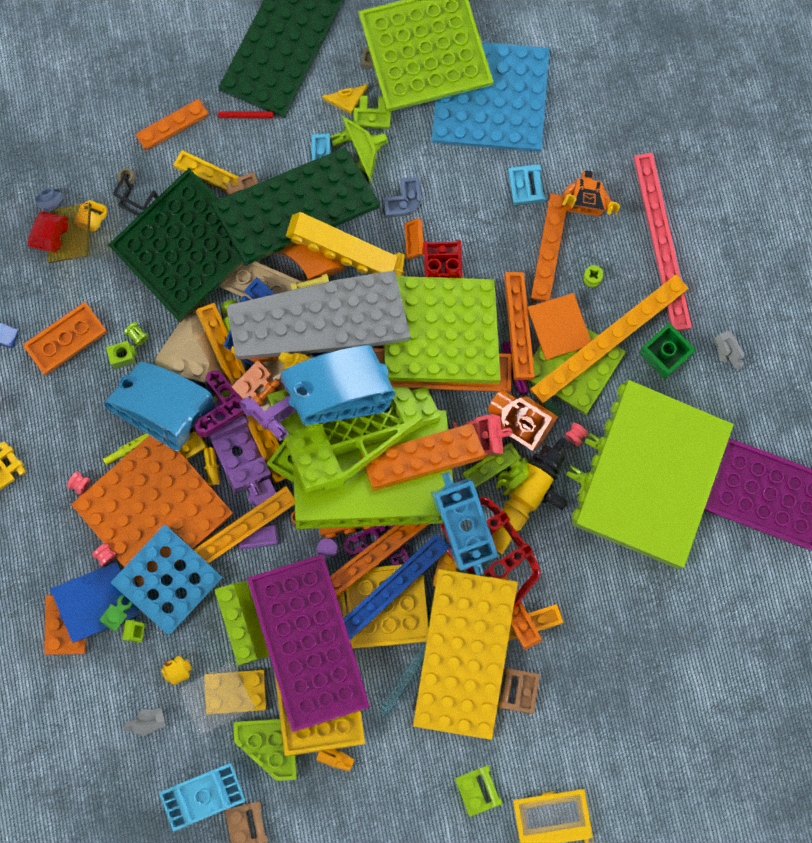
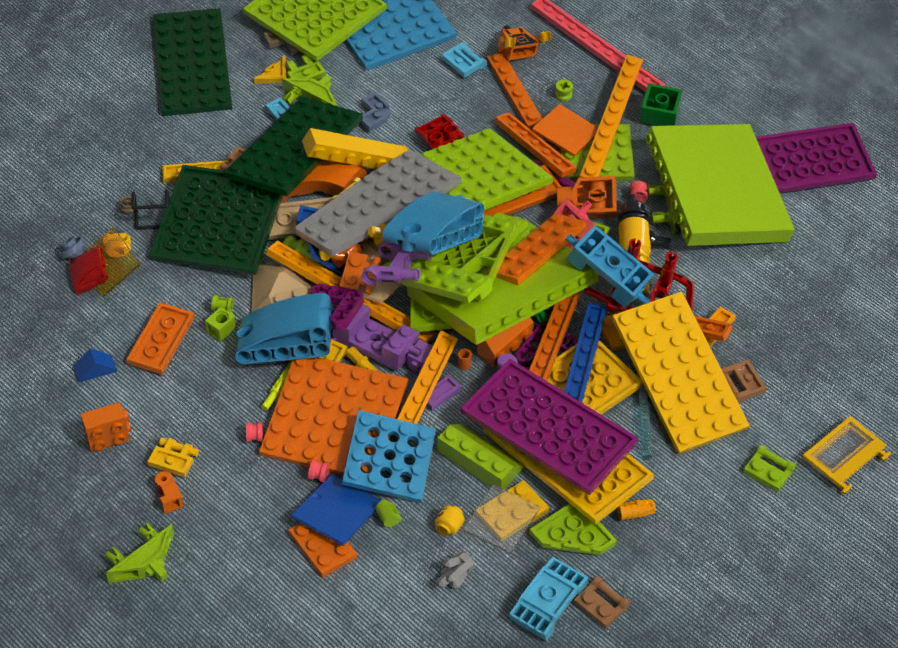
camera: 35 degrees left, 25 degrees down
(114, 615) = (363, 507): bright green plate -> none
(172, 124) = (140, 154): orange plate -> none
(246, 114) = (199, 119): red bar -> none
(414, 239) = (404, 132): orange plate -> none
(516, 476) = (618, 231): lime plate -> none
(729, 349) = (698, 81): light grey rock -> none

